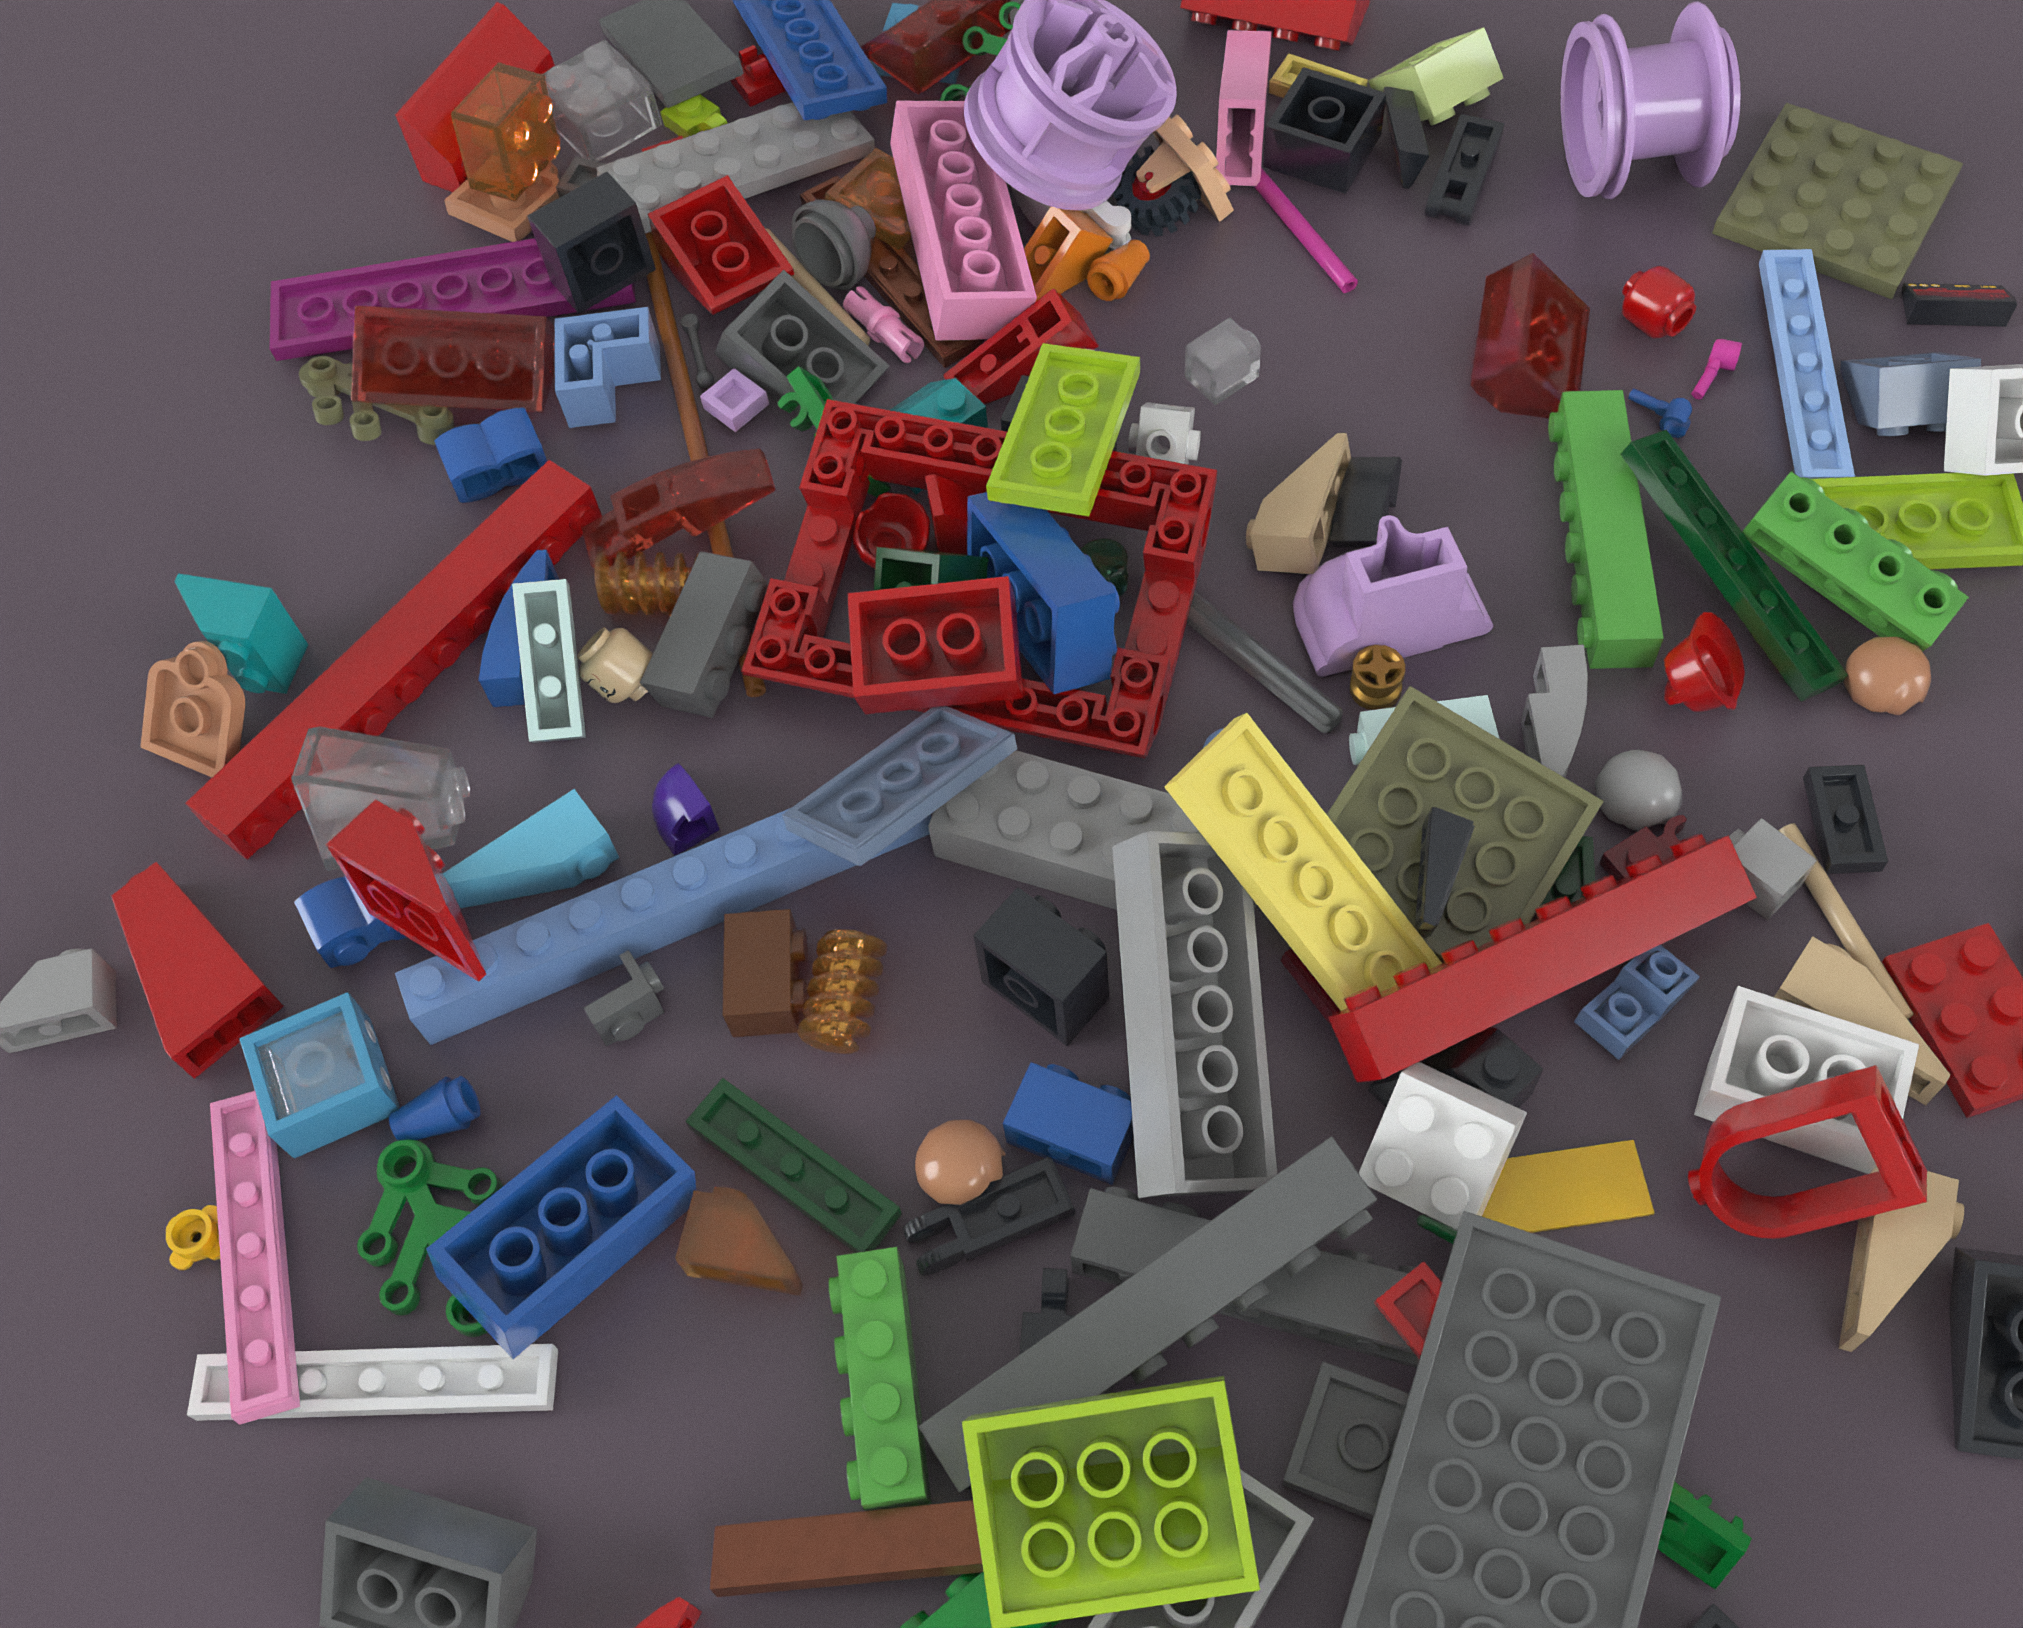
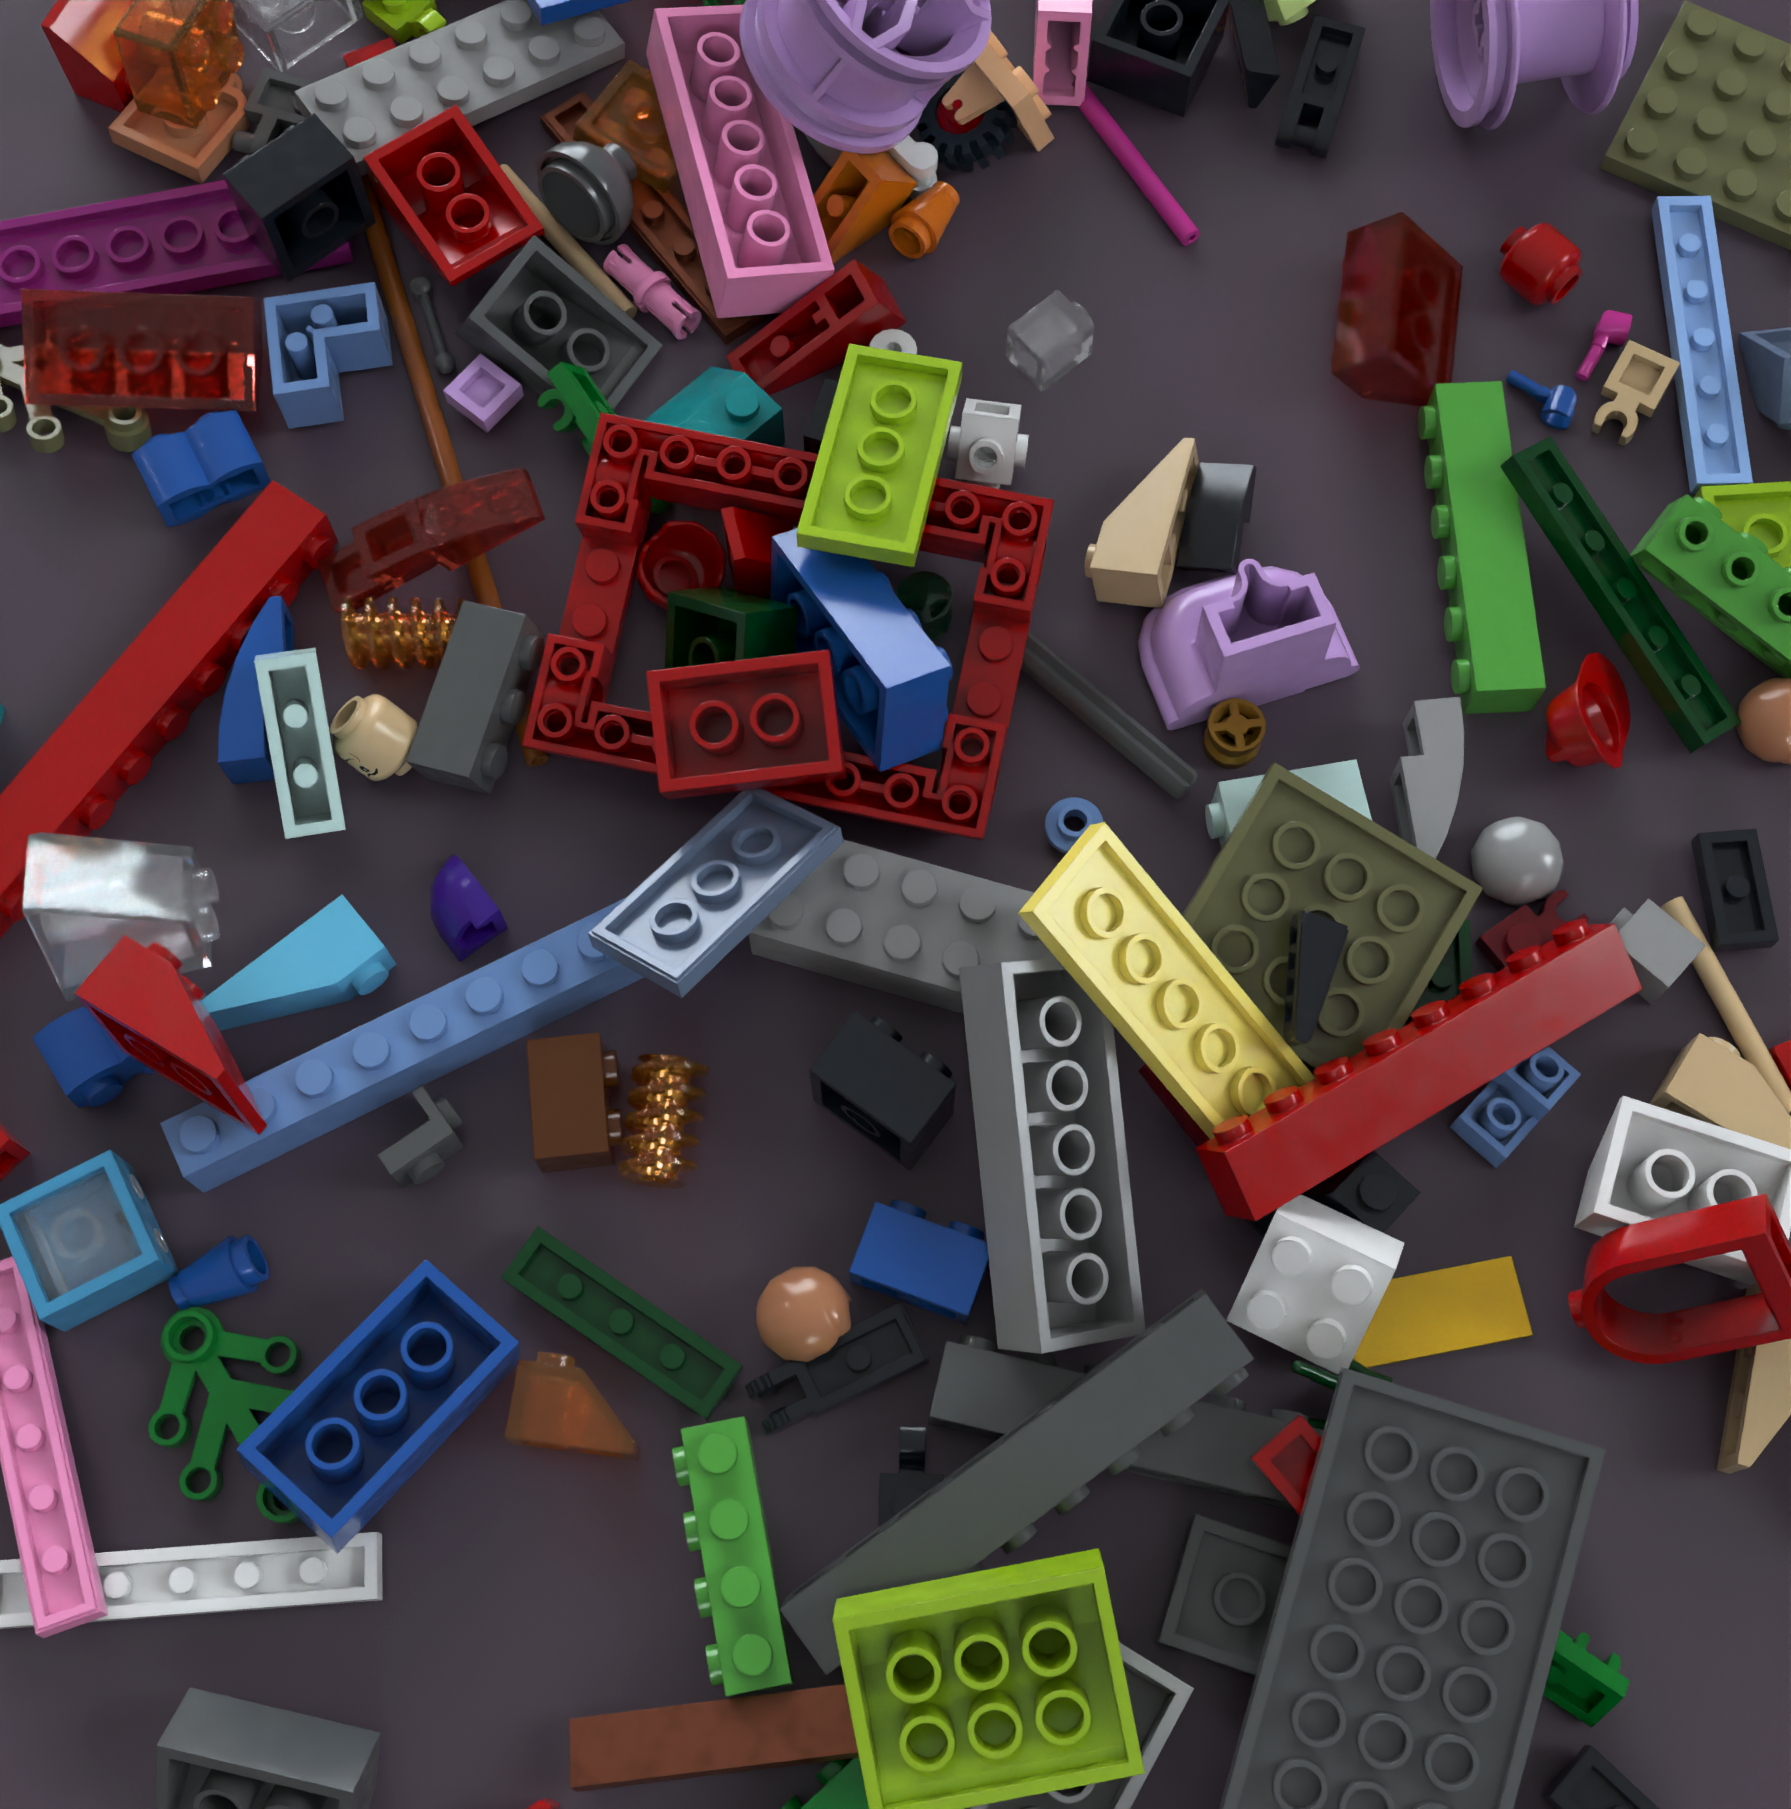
camera: 10 degrees left, 10 degrees up
(1744, 399) = (1634, 385): none -> tan plate

